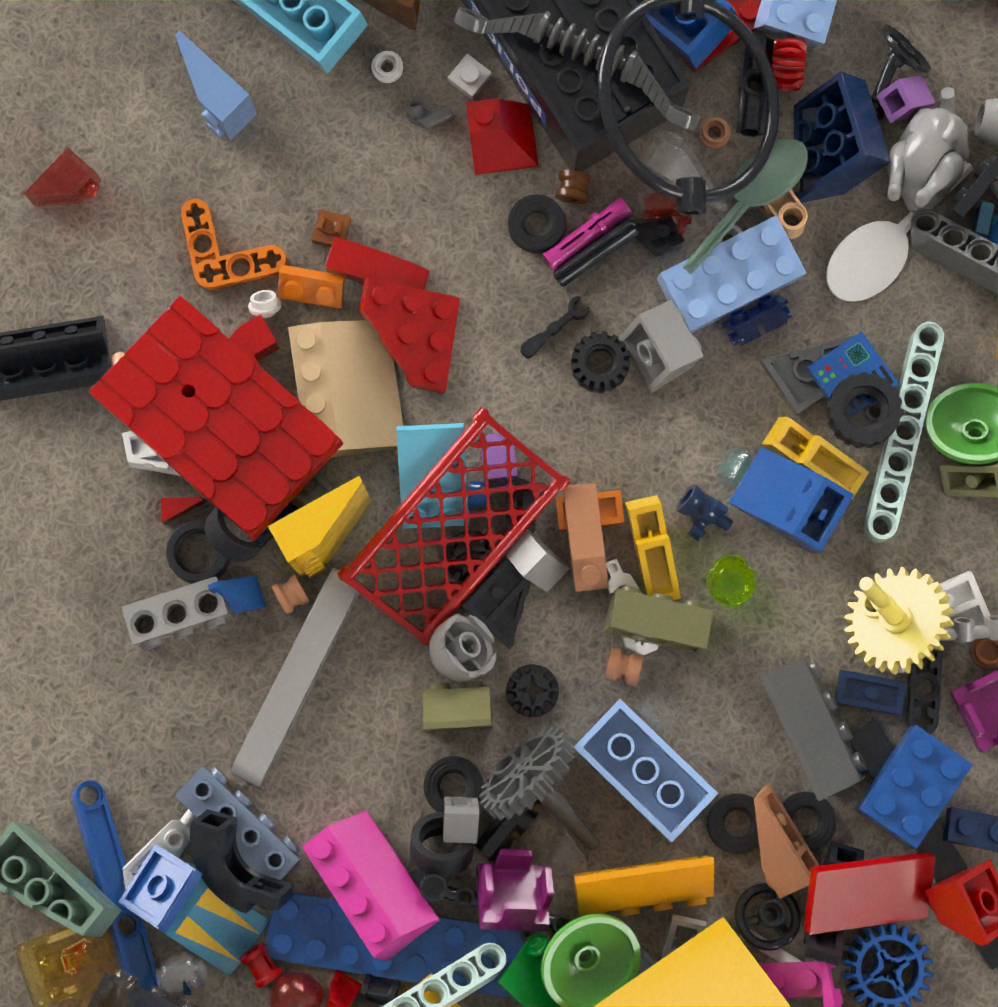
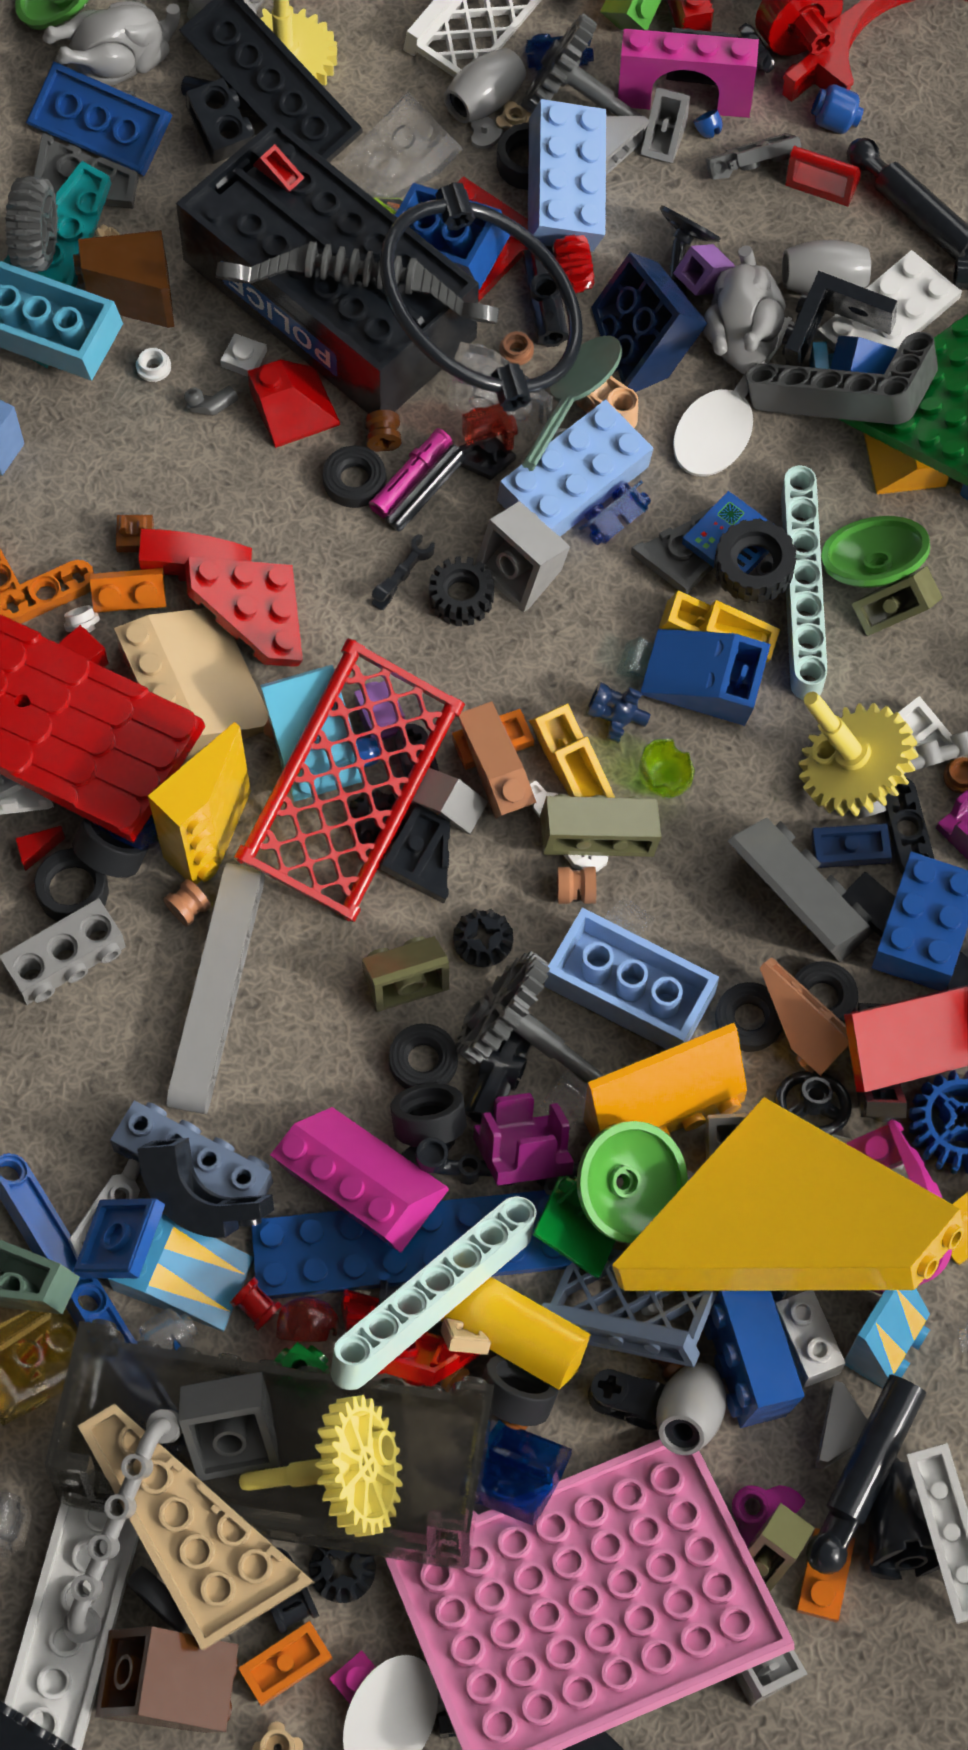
camera: 20 degrees left, 15 degrees down
(241, 593) = (132, 911): blue tile -> none
(460, 820) = (442, 1074): light grey slope -> none
(462, 648) = (392, 907): light grey cylinder -> none

